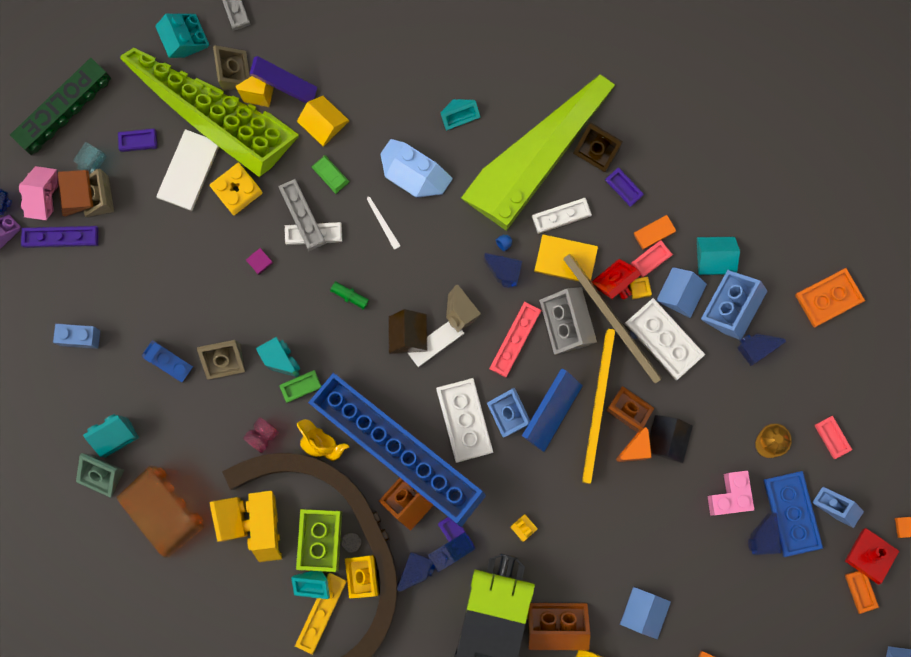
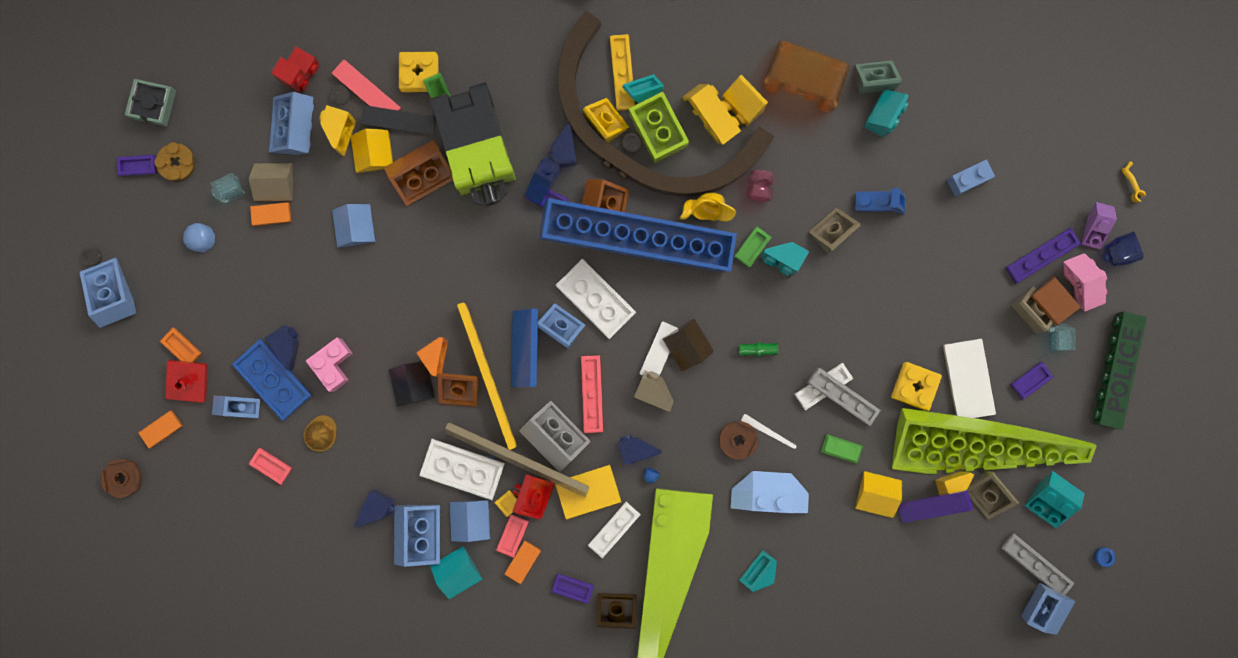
camera: 145 degrees right, 5 degrees up
(259, 261) = (855, 334): magenta tile -> none
(422, 233) = (748, 435): none -> reddish brown plate
(523, 528) = (493, 237): yellow tile -> none
(830, 297) = (335, 591): orange tile -> none

